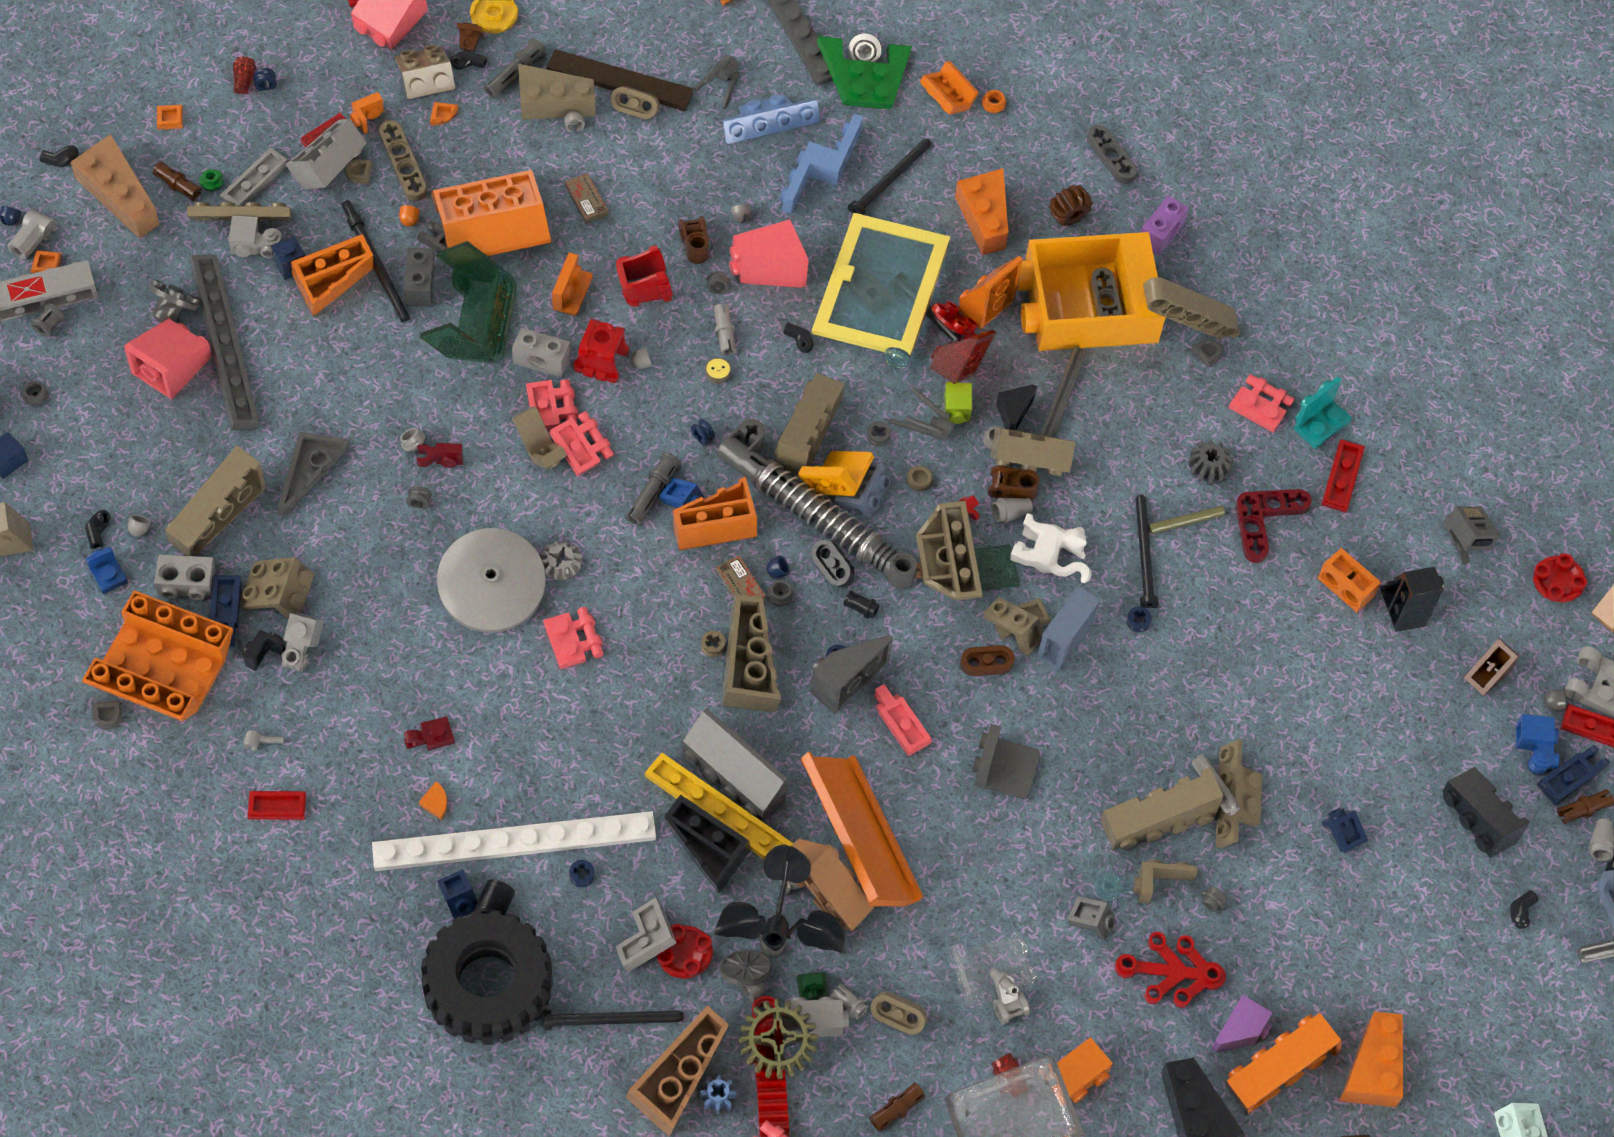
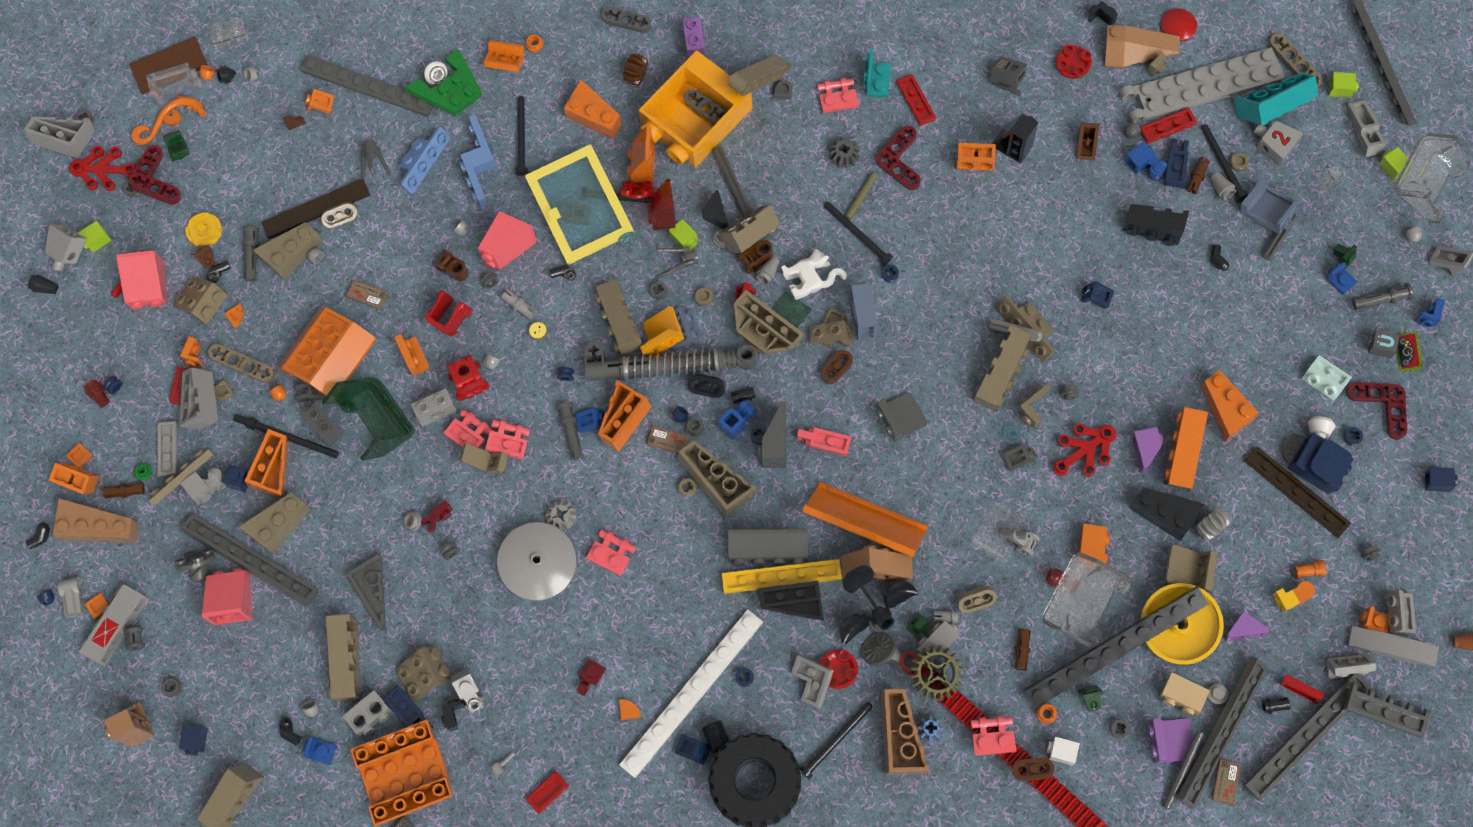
camera: 30 degrees left, 10 degrees up
(143, 129) = (74, 478): none -> orange brick
(284, 328) = (276, 522): none -> dark tan wedge
(824, 622) = (734, 421): none -> blue brick

